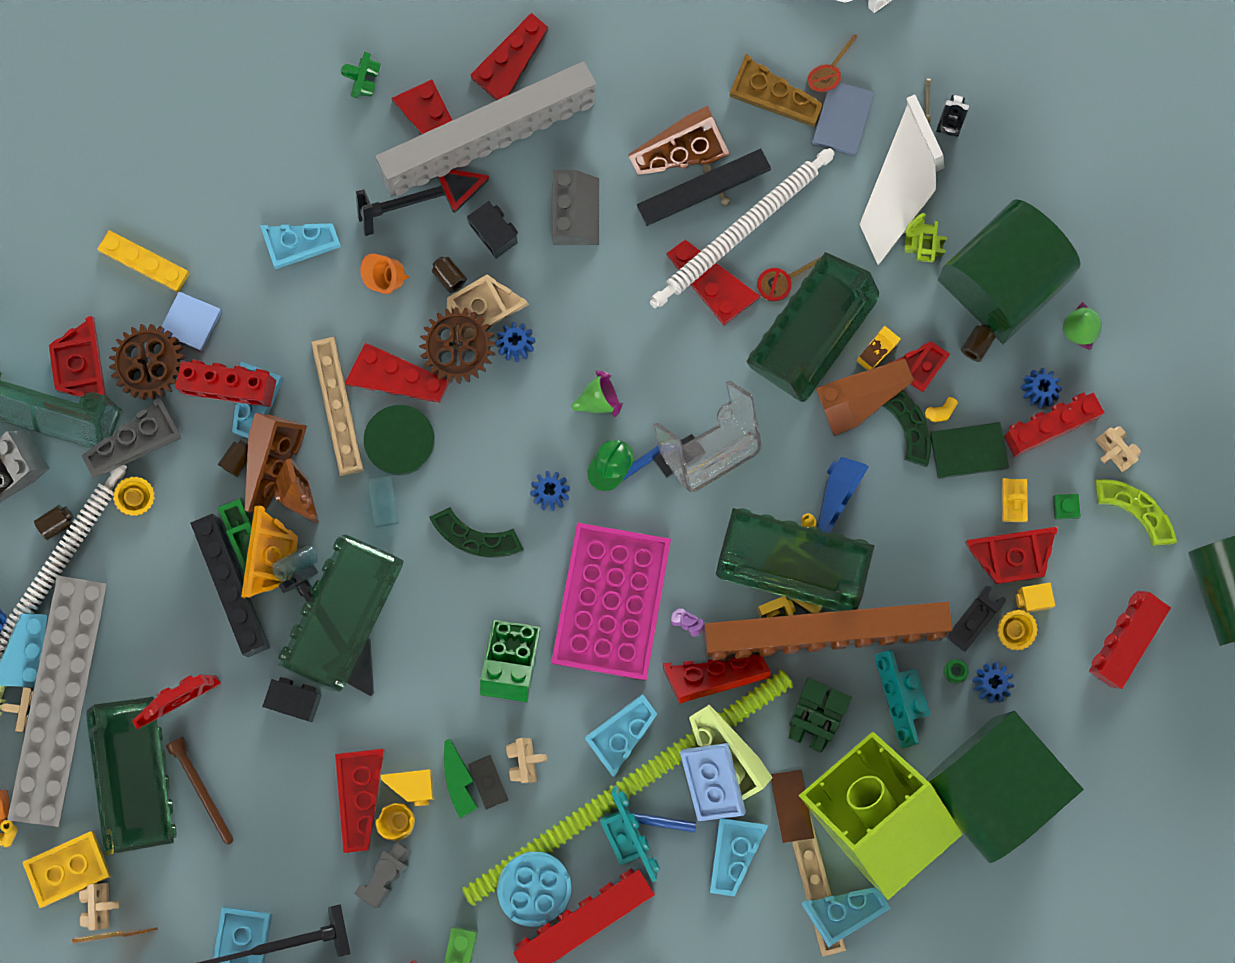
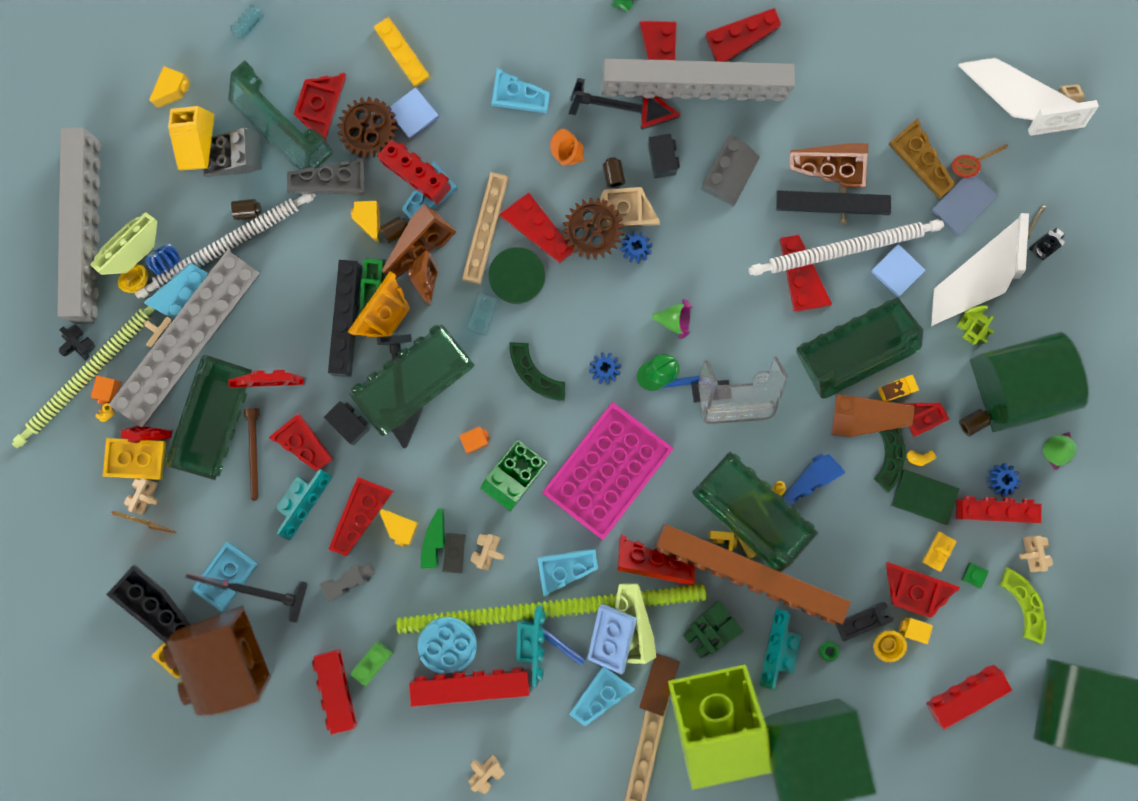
camera: 30 degrees right, 5 degrees up
(58, 836) = (136, 433): none -> red wing
(133, 496) = (309, 219): yellow hat -> none
(198, 461) = (367, 217): none -> yellow slope
(252, 749) = (301, 441): none -> red wing
(283, 815) = (299, 501): none -> teal bracket
(294, 563) = (398, 326): clear light blue piece -> none
(395, 822) = (374, 547): yellow hair -> none
(446, 643) = (474, 439): none -> orange brick
(687, 621) = (654, 514): medium lavender piece -> none
(775, 283) = (848, 301): piece -> none
(811, 224) = (897, 270): none -> light blue tile
(844, 914) = (657, 781): medium azure wing -> none
(998, 691) = (850, 682): blue gear -> none

